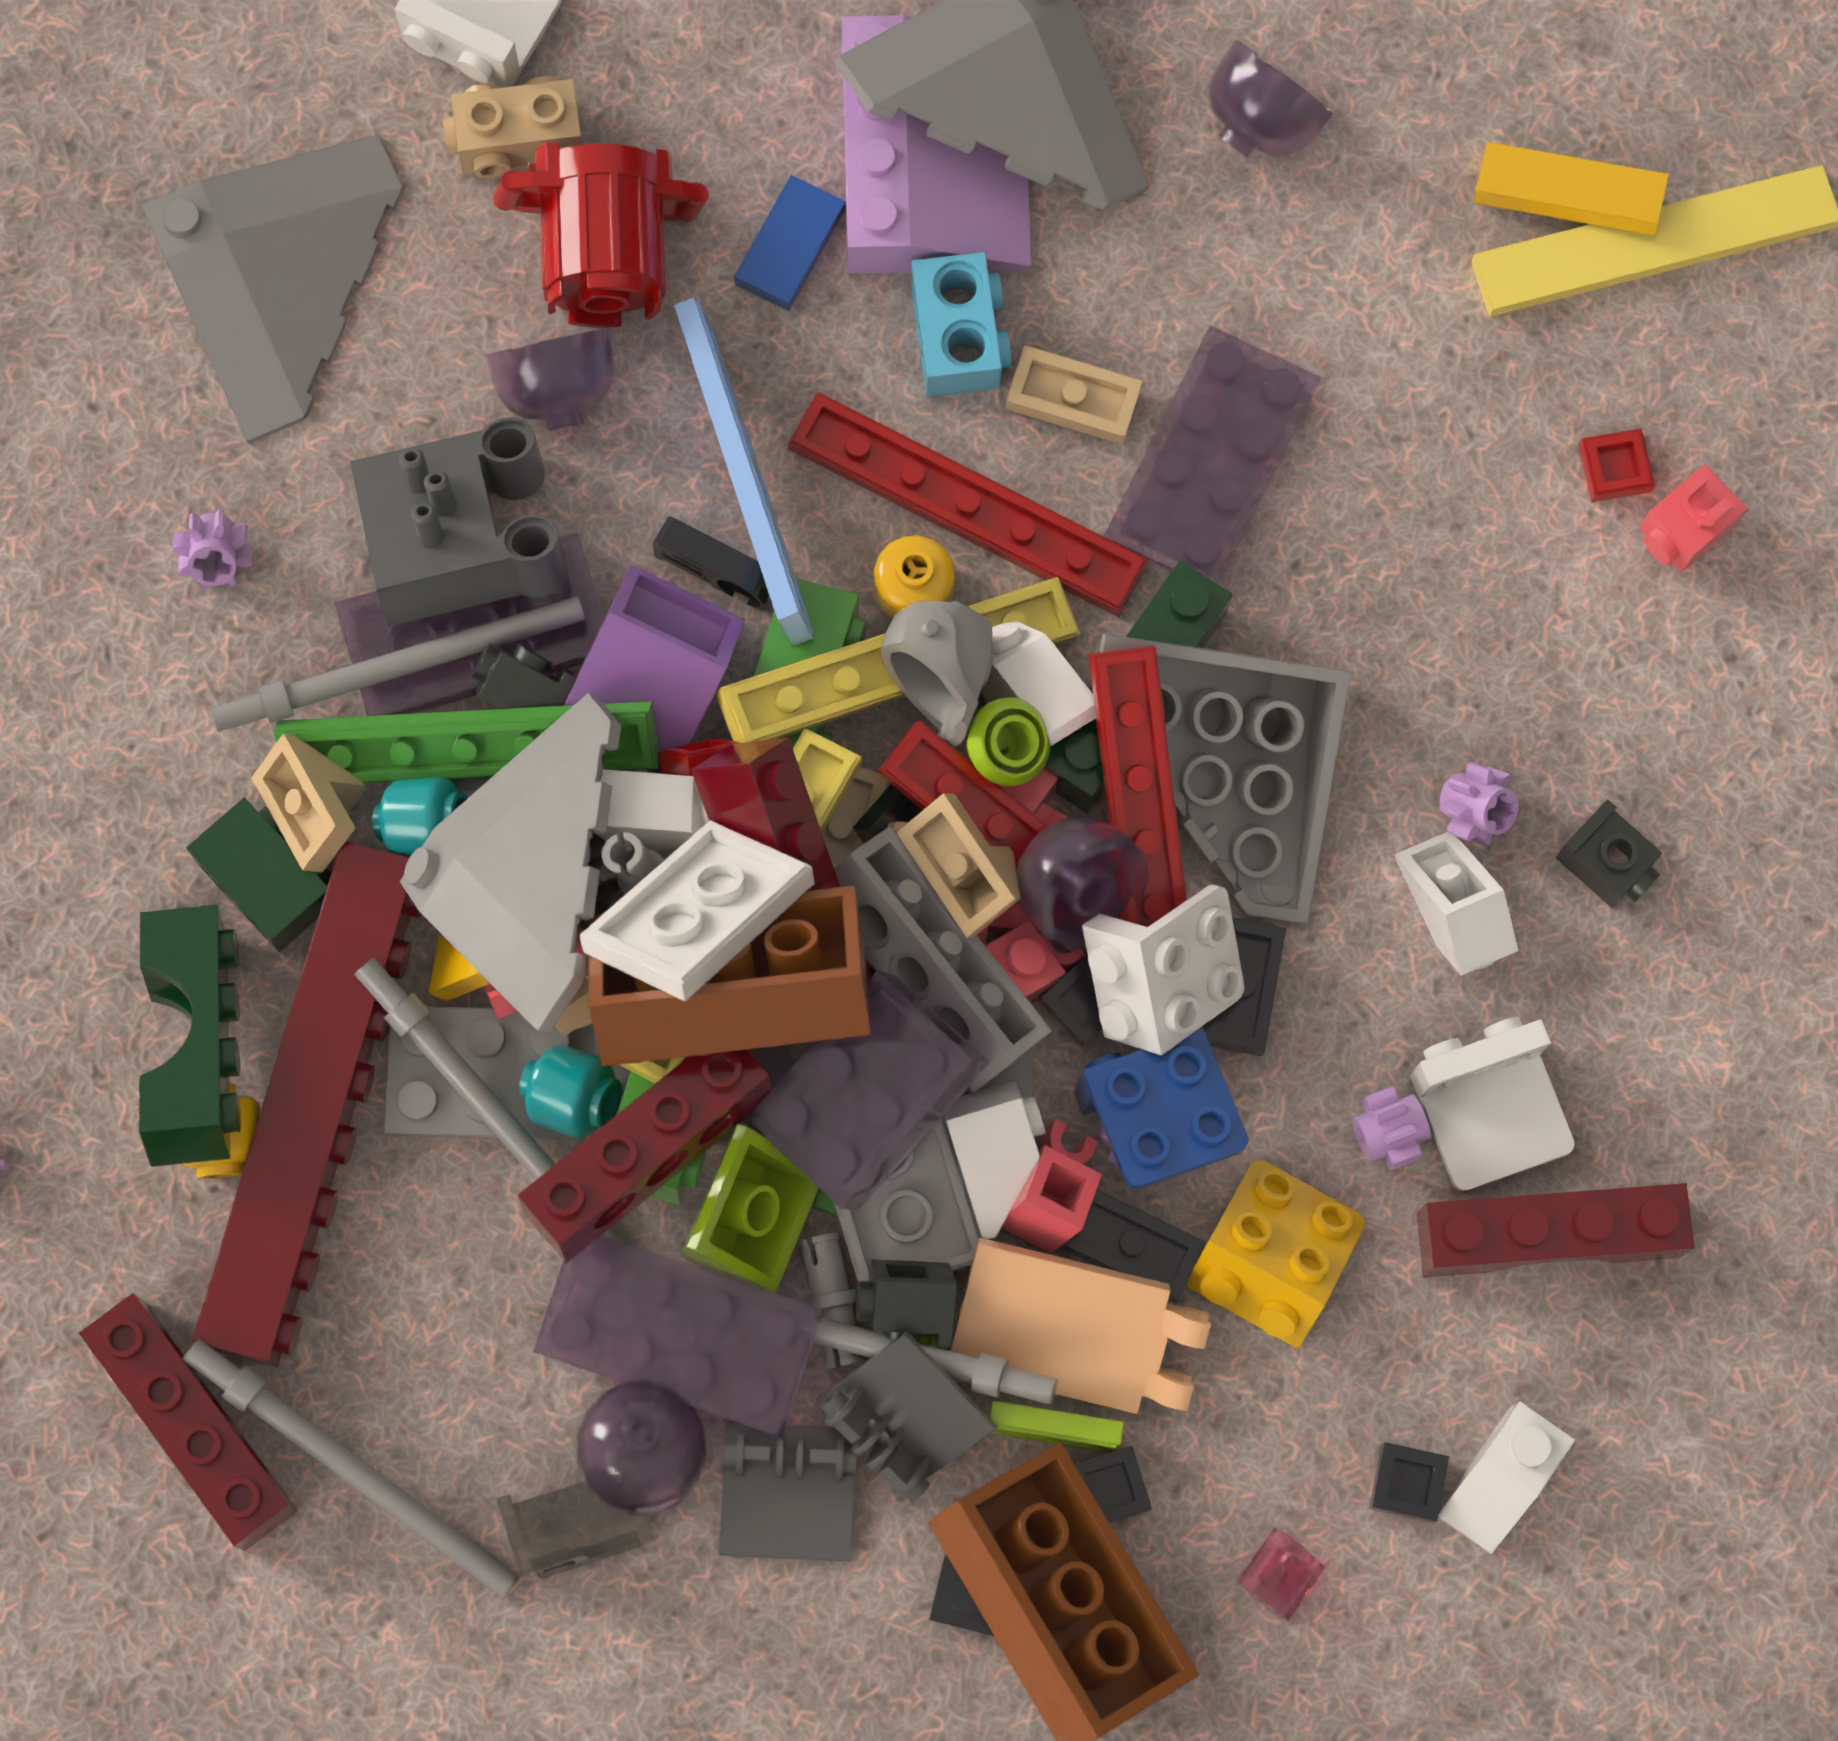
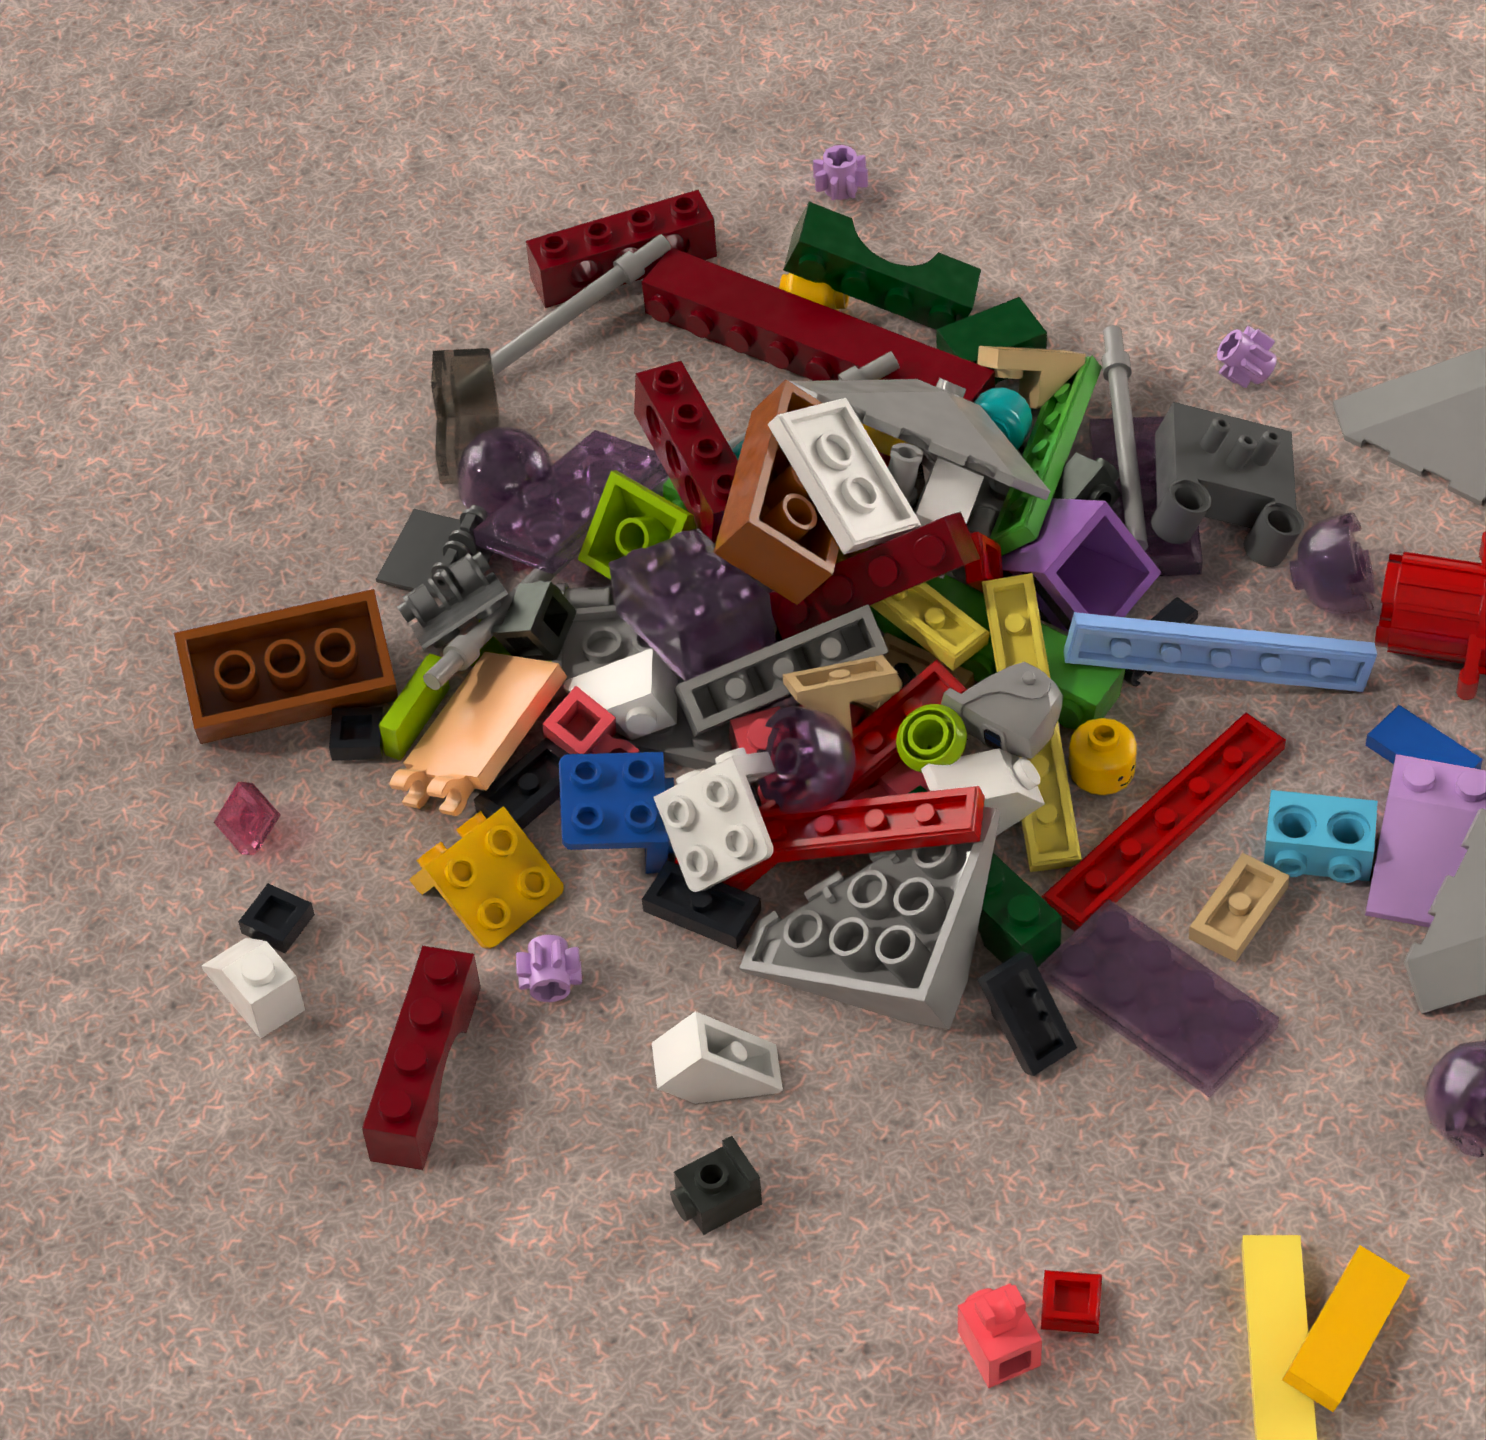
camera: 115 degrees right, 25 degrees down
(1301, 580) = (1027, 1013): none -> black tile
(1479, 803) = (792, 1097): lavender gear -> none
(1492, 1104) = (541, 1048): white bracket -> none

